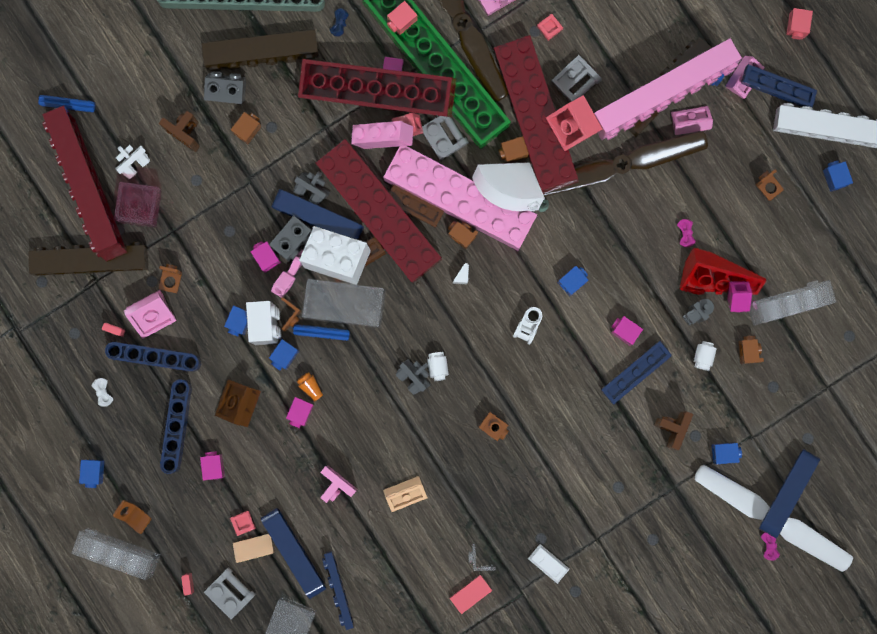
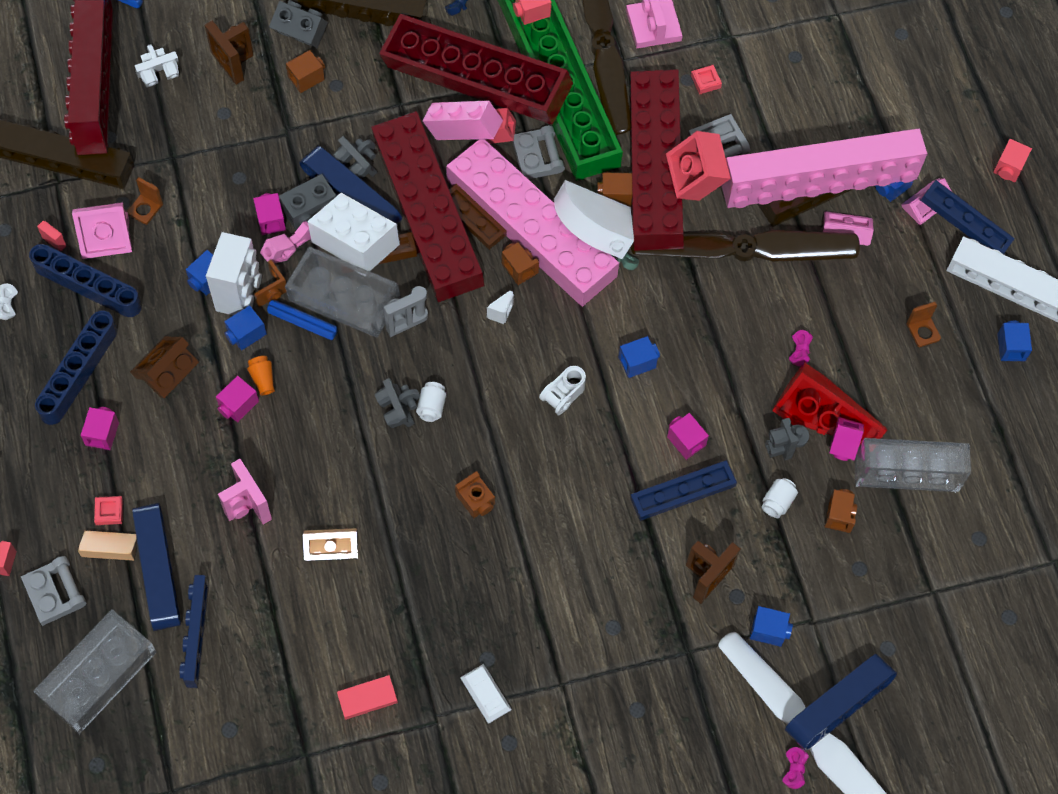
camera: 20 degrees right, 20 degrees down
(137, 204) = (143, 110): clear pink brick -> none
(392, 310) = (399, 312): none -> light grey plate
(472, 559) = (386, 650): clear bracket -> none

